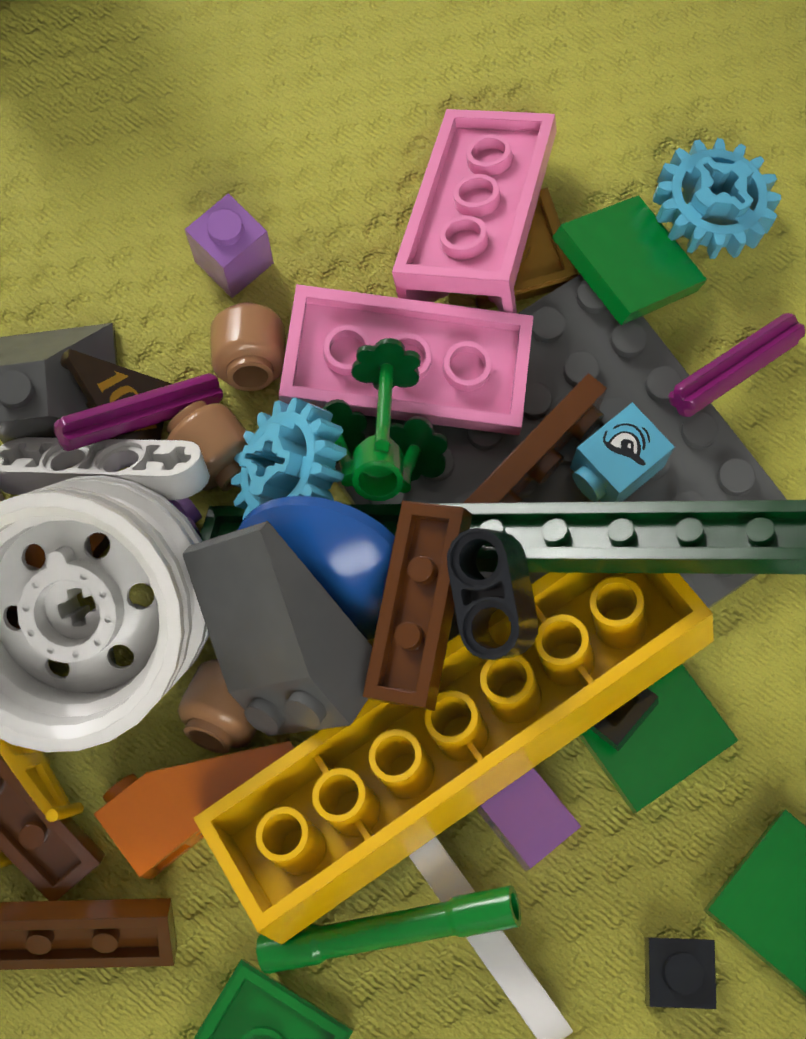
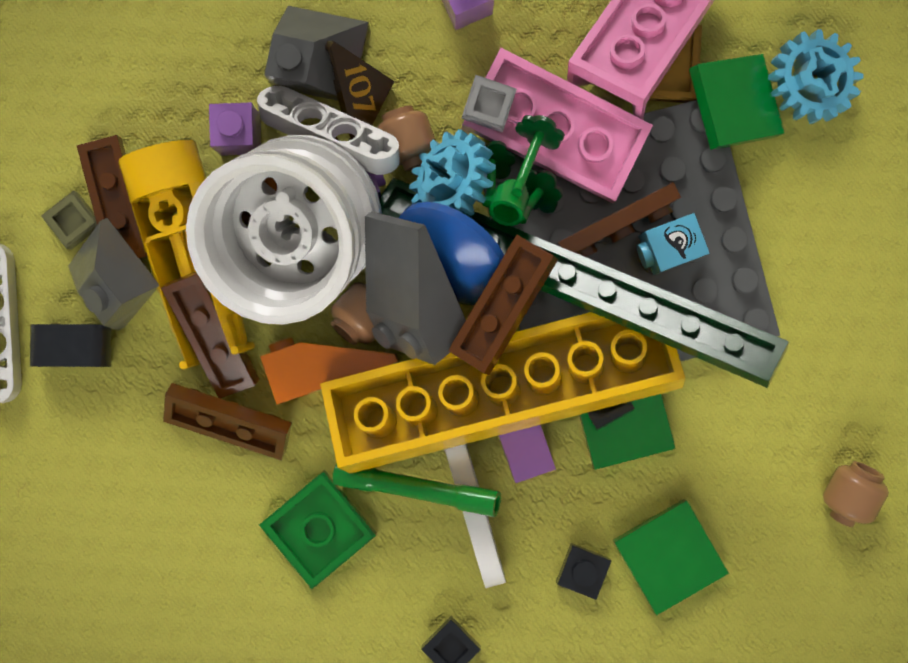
camera: 20 degrees right, 15 degrees up
(134, 412) = (366, 98): magenta axle -> none
(247, 346) = (453, 73): medium nougat head -> none
(305, 356) = (488, 103): none -> light grey tile
(480, 597) = (543, 315): black beam -> none
(736, 365) = (778, 203): magenta axle -> none

